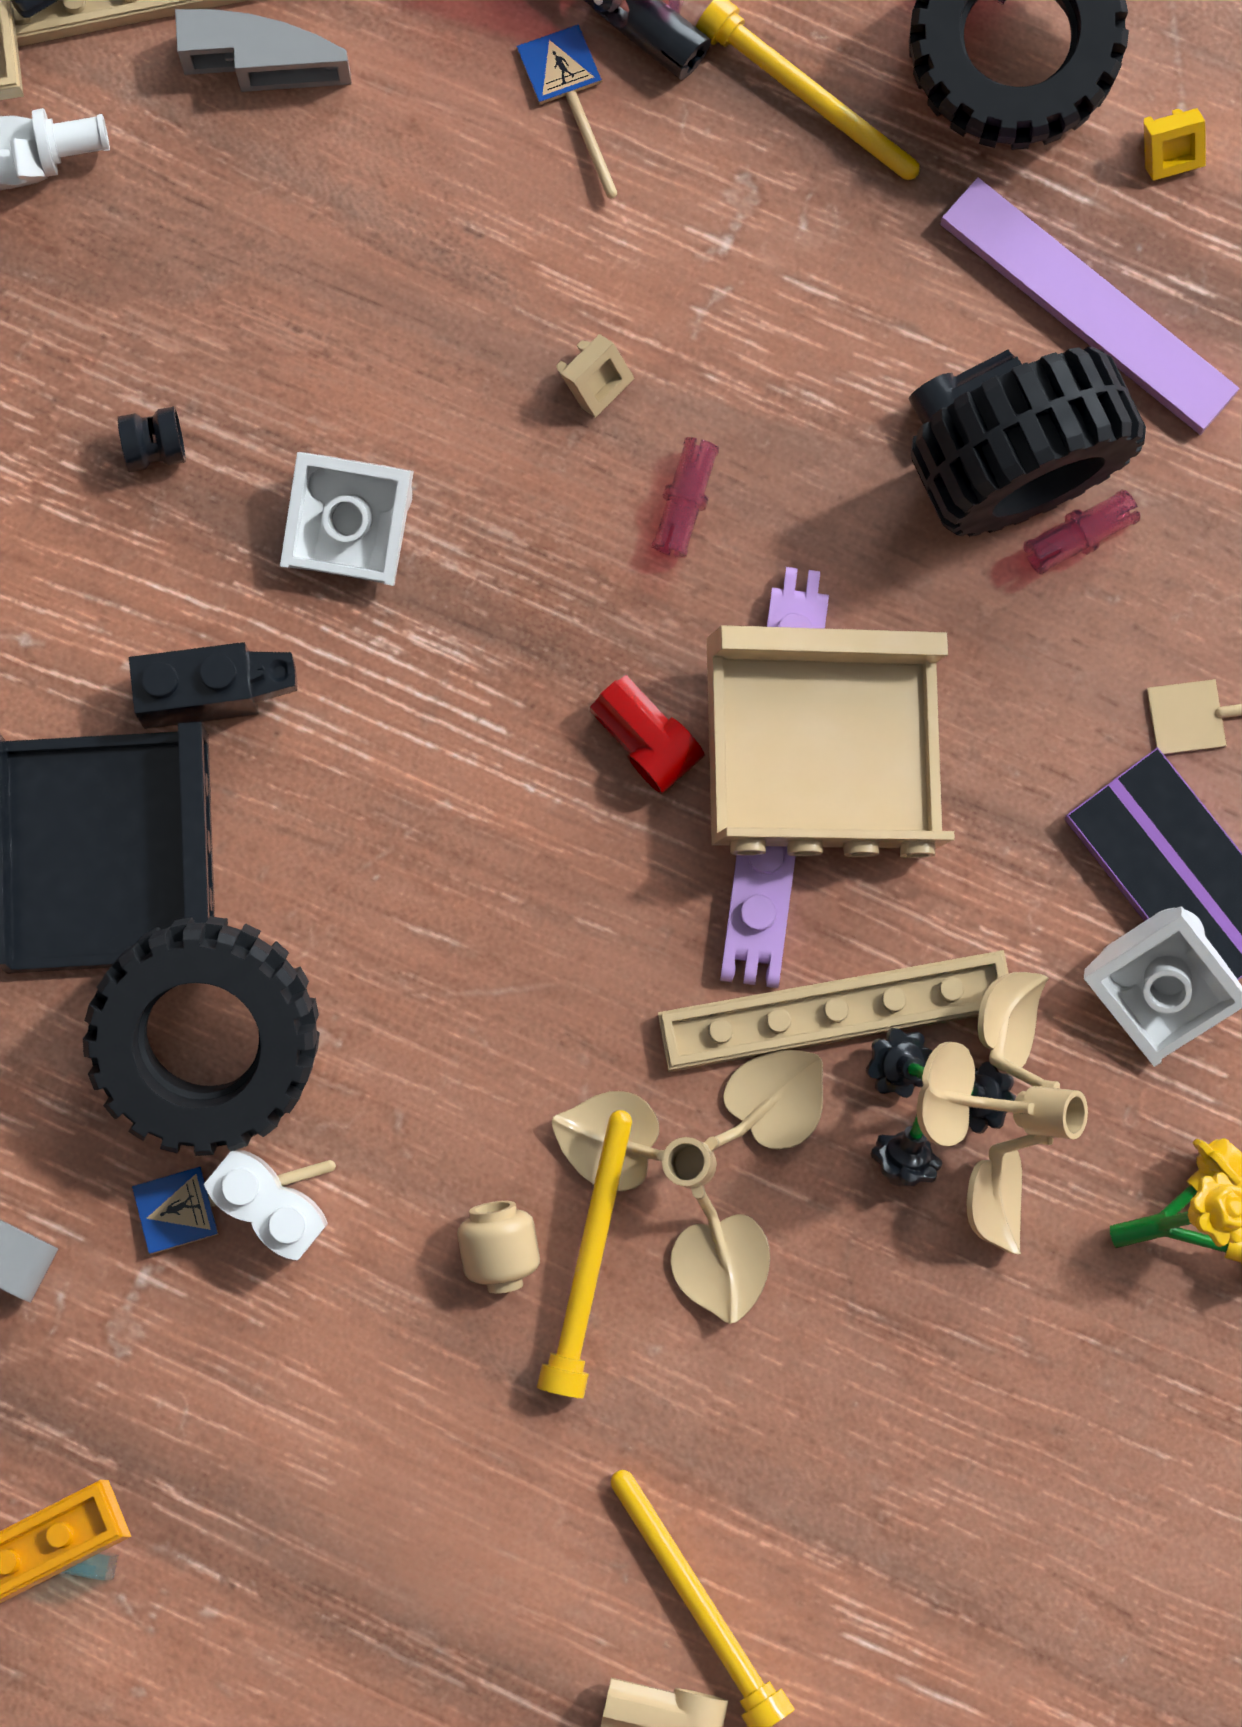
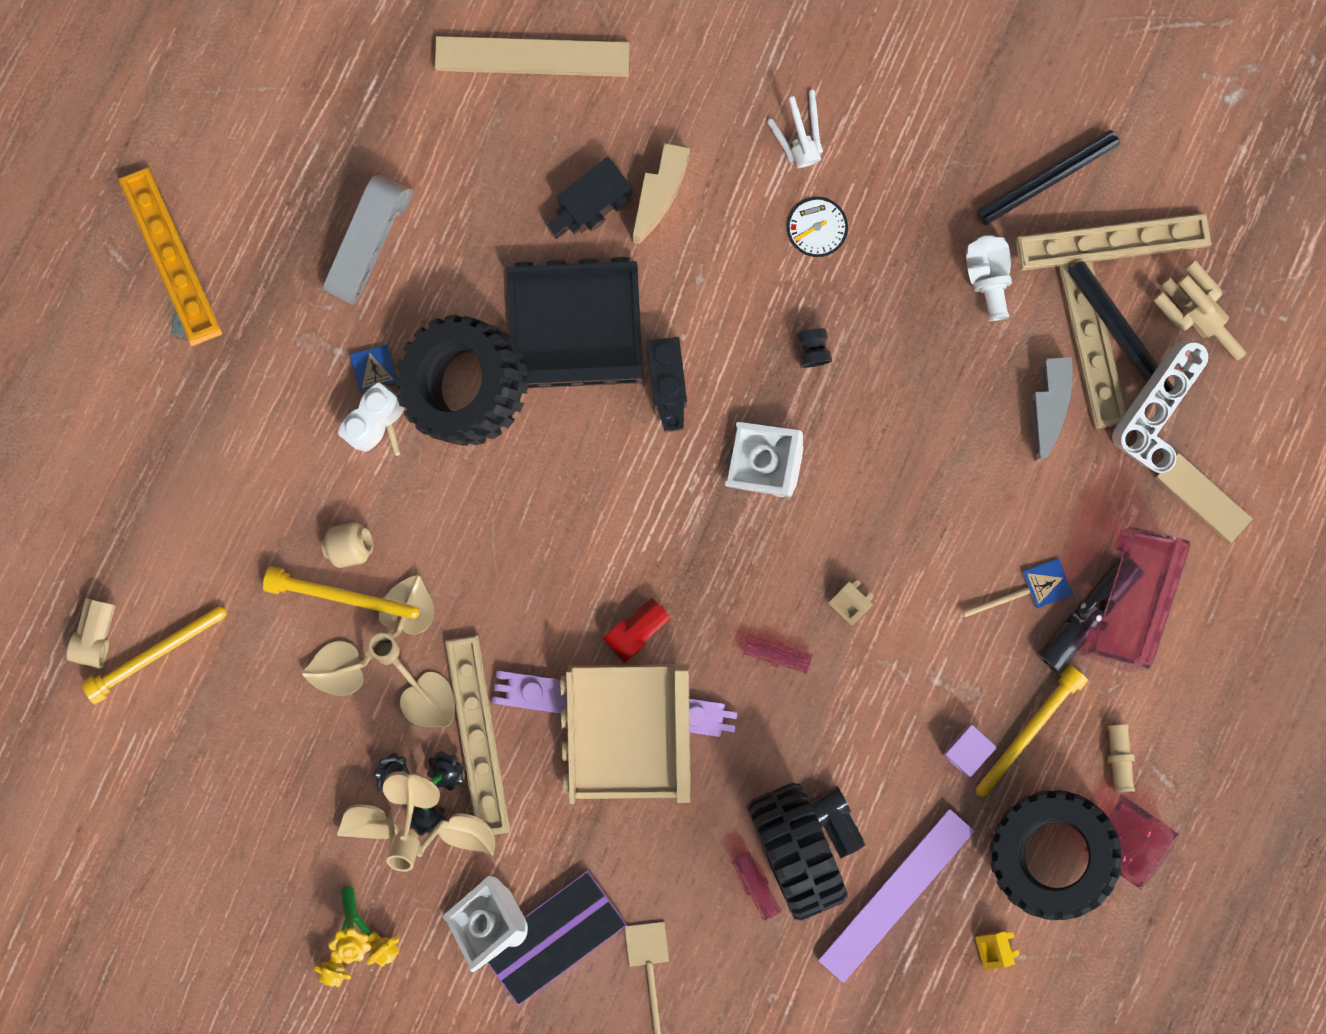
camera: 90 degrees right, 5 degrees up
(844, 184) = (969, 750): none -> lavender panel

